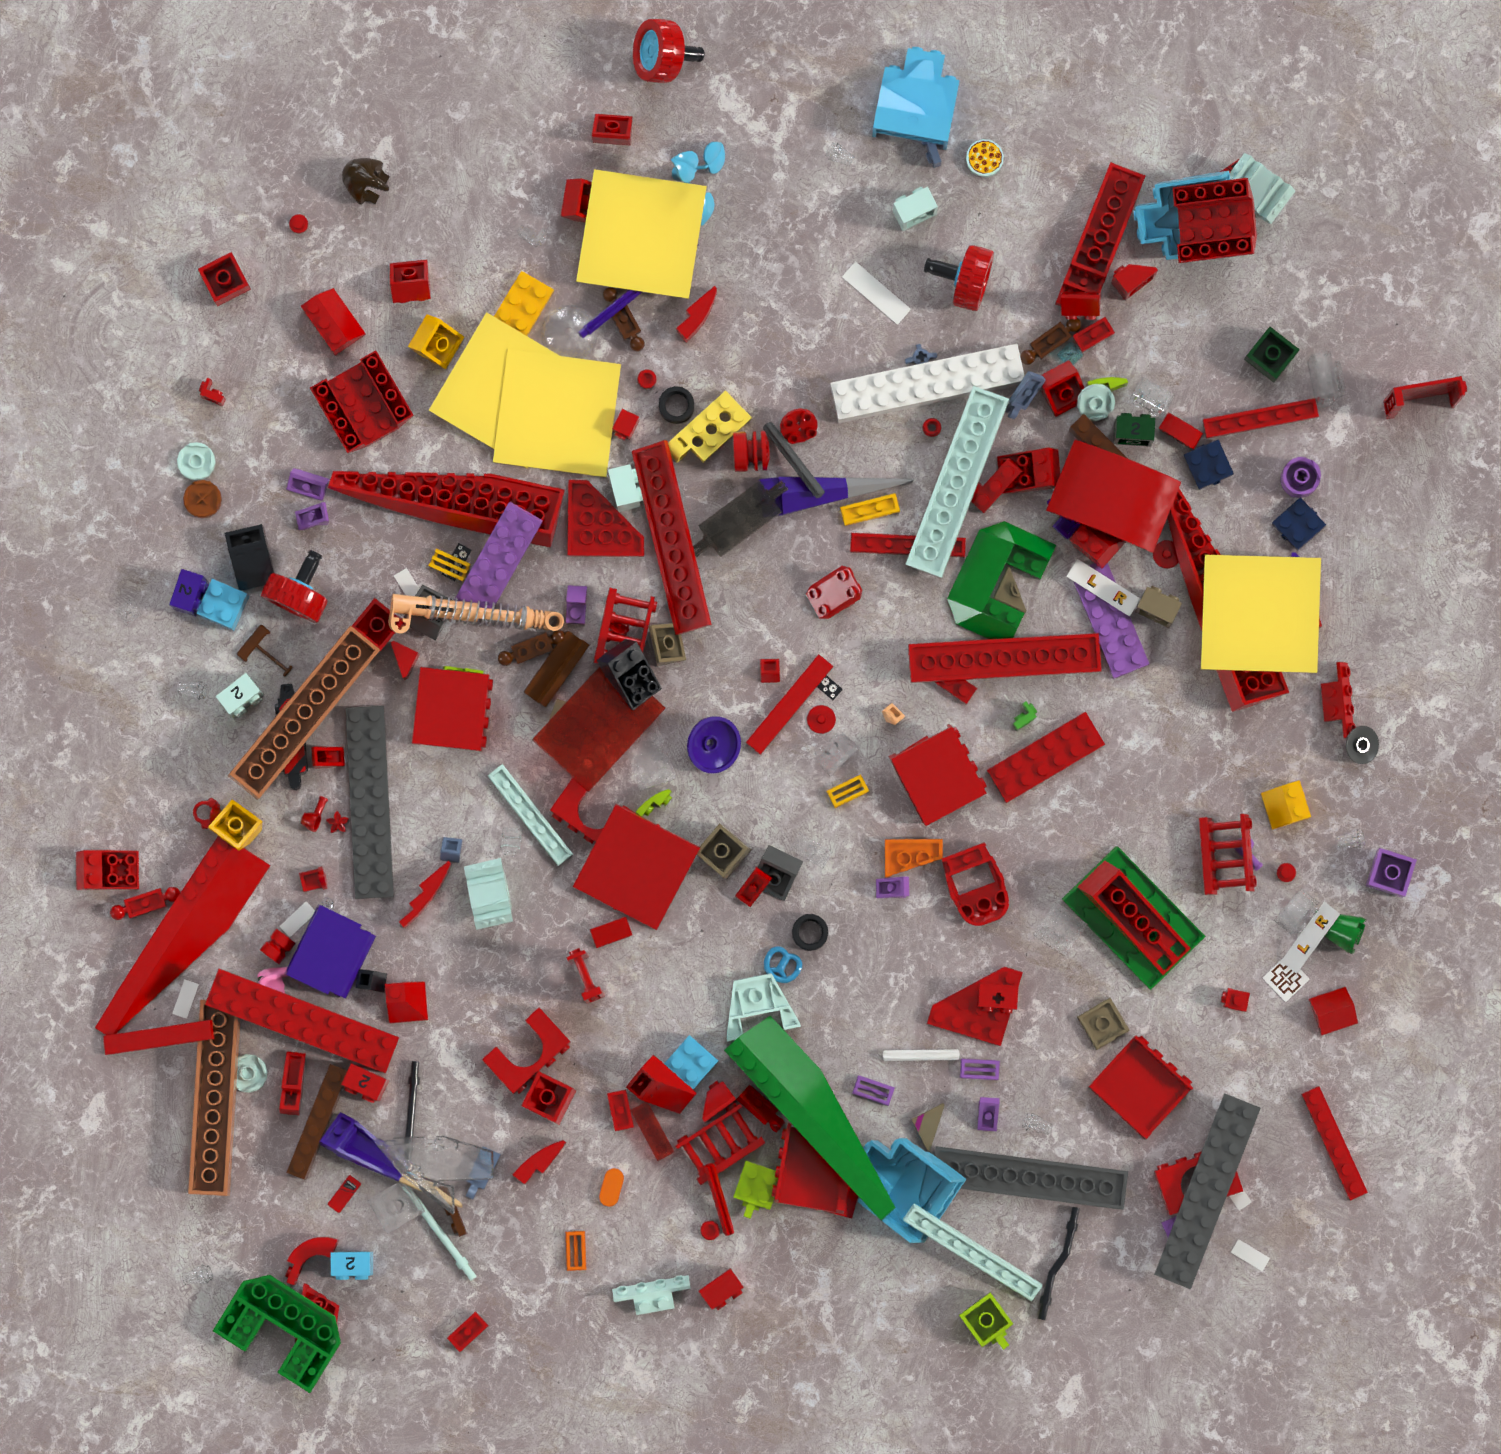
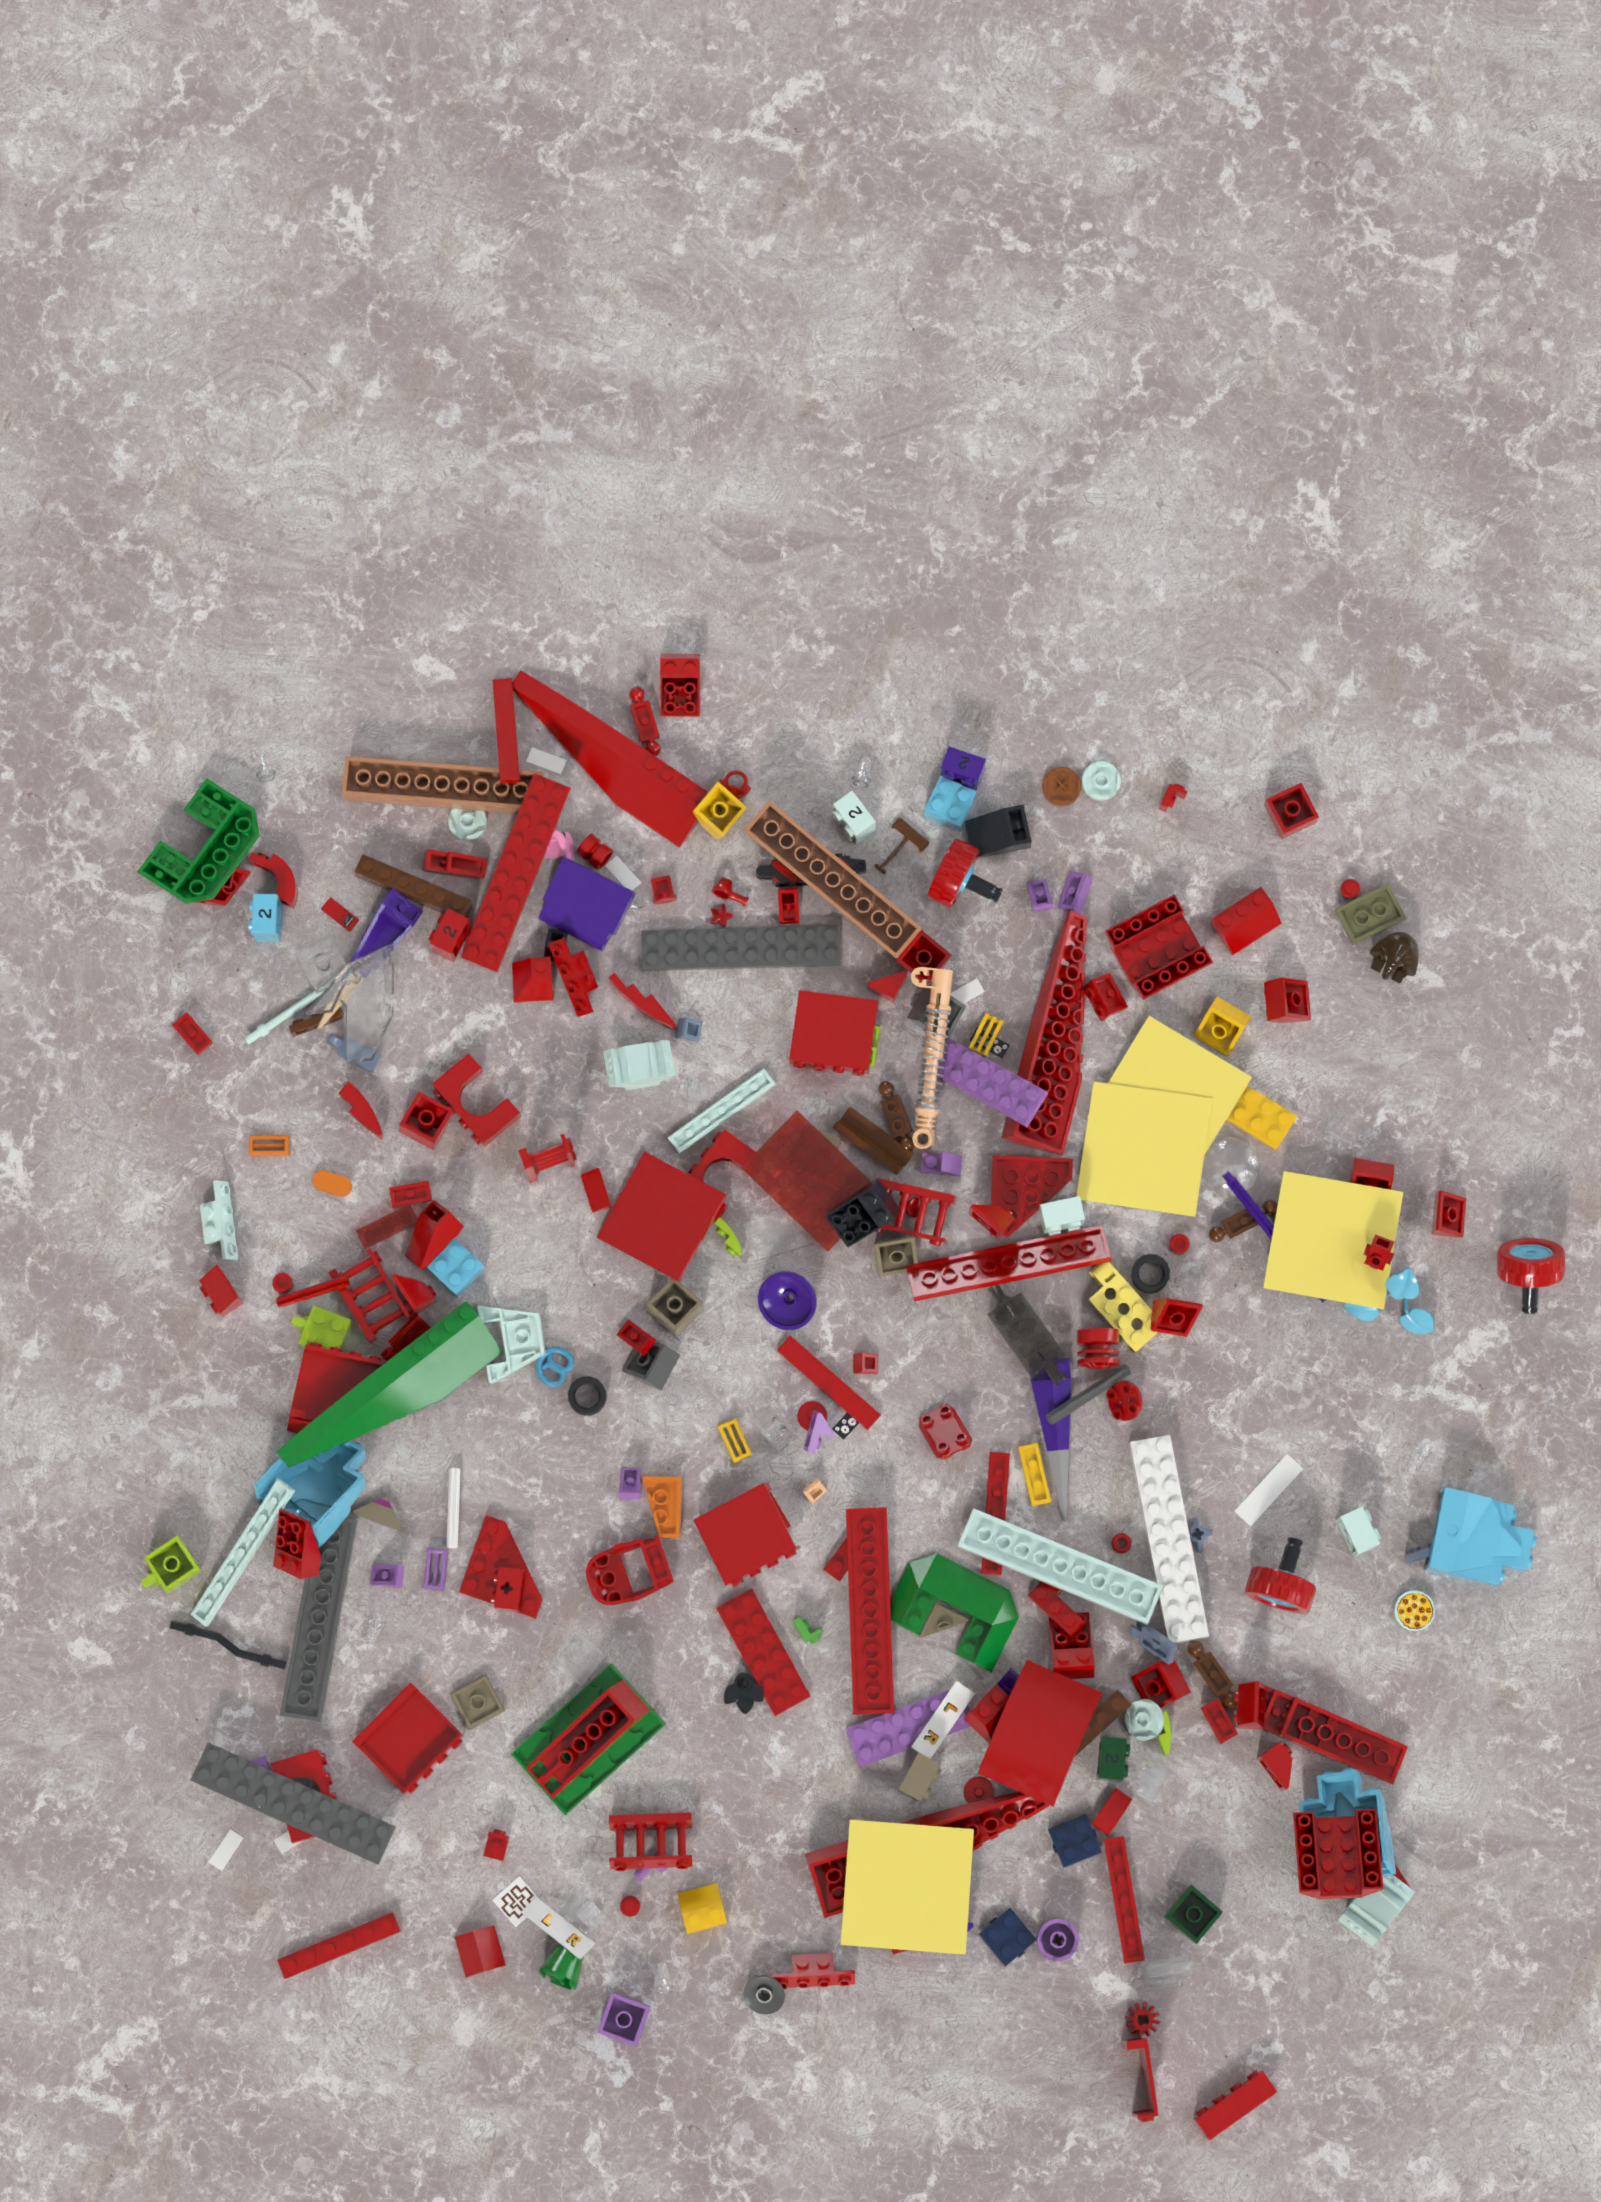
camera: 90 degrees right, 5 degrees down
(323, 204) = (1370, 914): none -> olive plate
(402, 959) = (575, 974): none -> red bracket
(410, 453) = (1105, 996): none -> red bracket
(413, 1080) = (450, 986): black bar -> none
(625, 425) = (1130, 1219): red brick -> none
(630, 551) = (993, 1218): none -> red slope
(654, 189) = (1379, 1252): none -> red brick
(697, 315) = (1247, 1299): red slope -> none
(718, 381) = (1174, 1316): none -> red slope
(834, 713) = (817, 1426): none -> slope
(858, 1085) = (413, 1473): medium lavender tile -> none
(966, 1200) = (296, 1546): none -> red slope
(1070, 353) = (1198, 1695): clear light blue slope -> none
(1087, 774) = (742, 1695): none -> black plate
(1360, 398) = (1142, 2012): none -> red gear
(1440, 314) = (1234, 2105): none -> red brick

